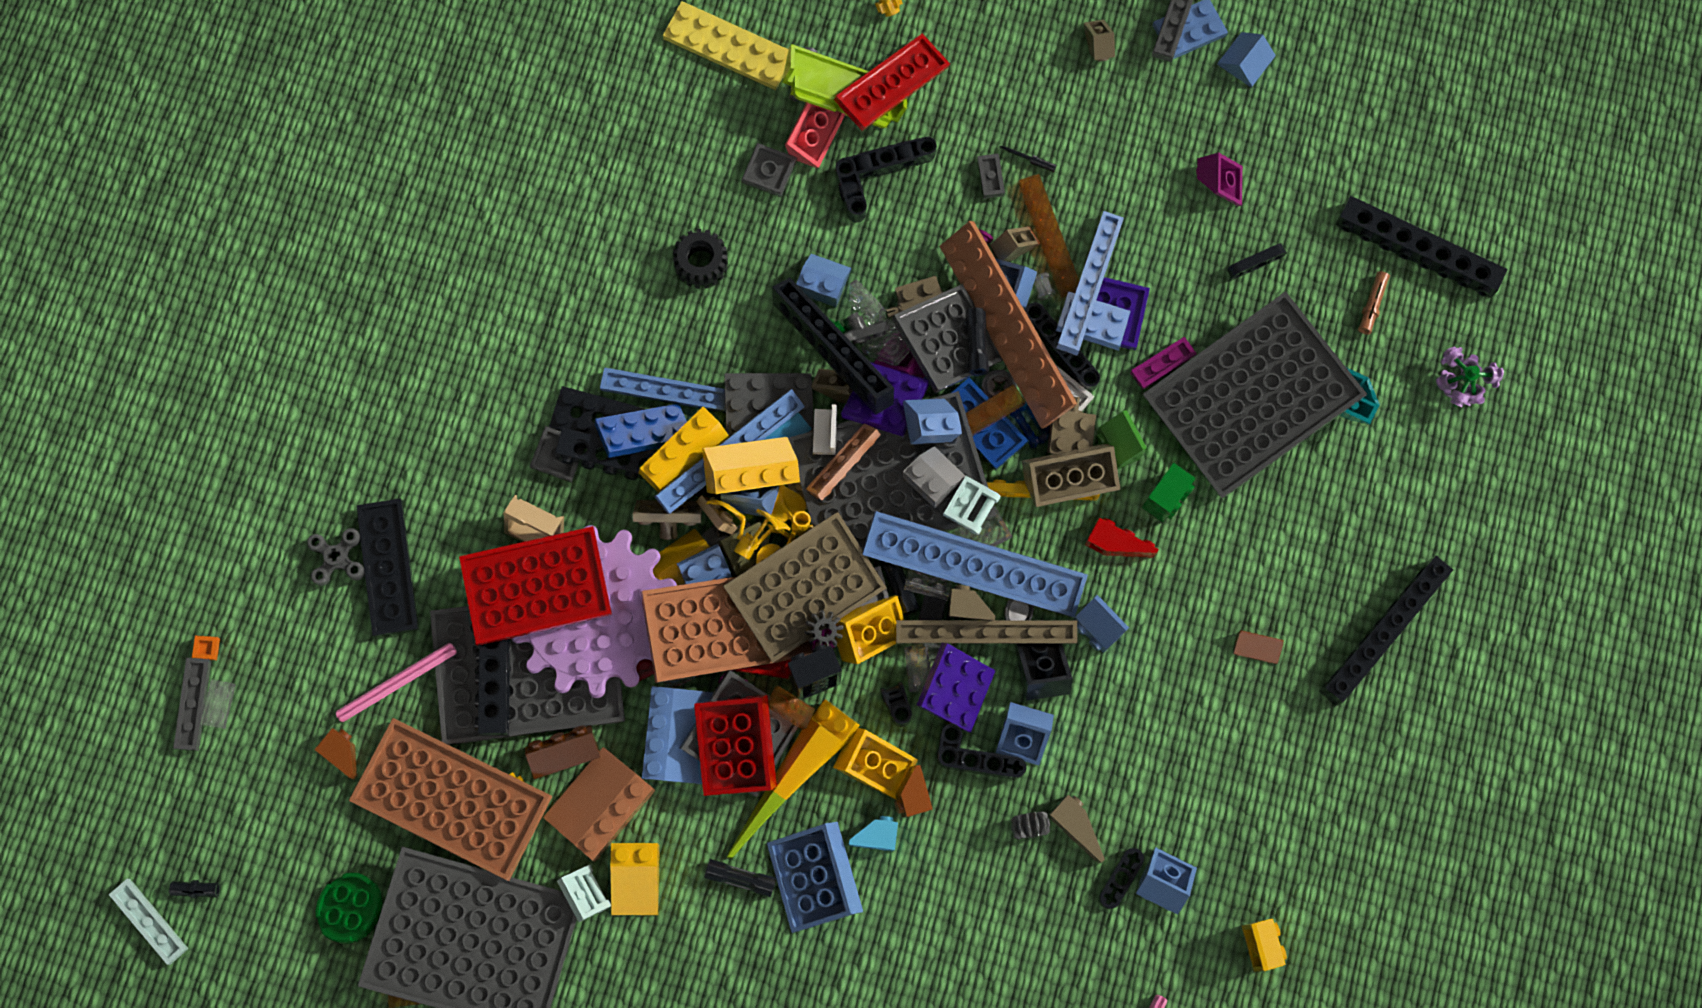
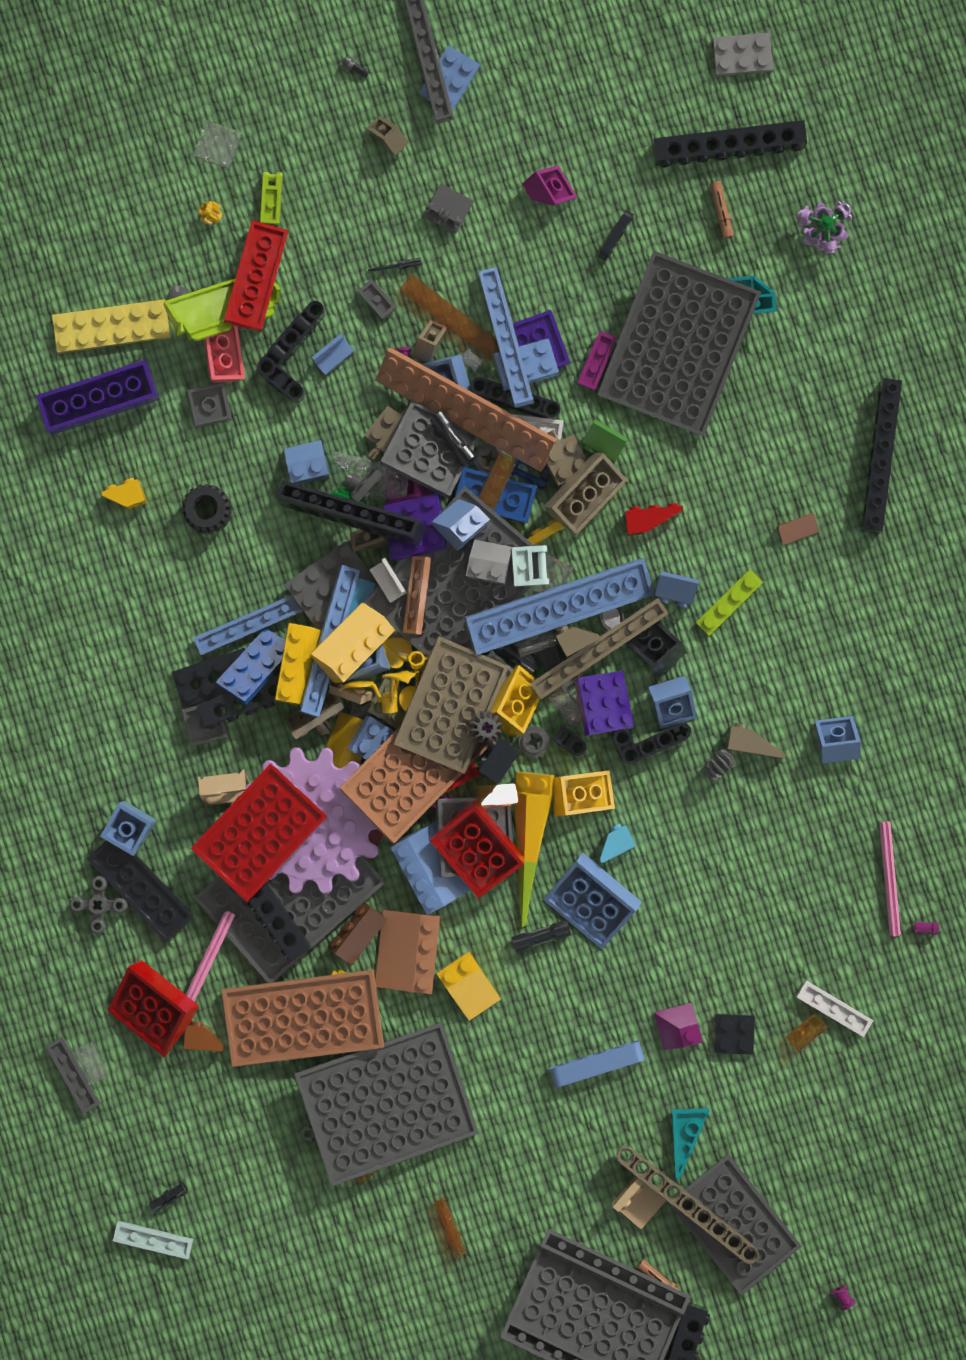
camera: 25 degrees left, 10 degrees up
(206, 647) = (53, 1030): orange plate -> none
(314, 688) = (152, 1007): none -> red slope
(349, 908) = (285, 1138): green tile -> none
(416, 502) = (128, 827): none -> medium blue slope
(580, 896) = (440, 1023): light aqua plate -> none
(636, 200) = (127, 495): none -> yellow slope
(670, 96) = (97, 397): none -> dark purple brick
(856, 672) = (530, 750): none -> dark grey gear
(913, 794) = (622, 798): dark orange slope -> none
(915, 197) = (333, 354): none -> medium blue panel
(953, 27) = (271, 198): none -> lime plate
(1112, 138) = (448, 208): none -> dark grey hinge
(1119, 896) = (810, 743): black beam -> none
(1143, 674) = (729, 602): none -> lime plate
(1172, 488) = (663, 458): green brick -> none
(1247, 57) = (507, 75): medium blue slope -> none
(1264, 945) = (932, 739): yellow slope -> none
(1483, 177) = (742, 54): none -> light grey plate

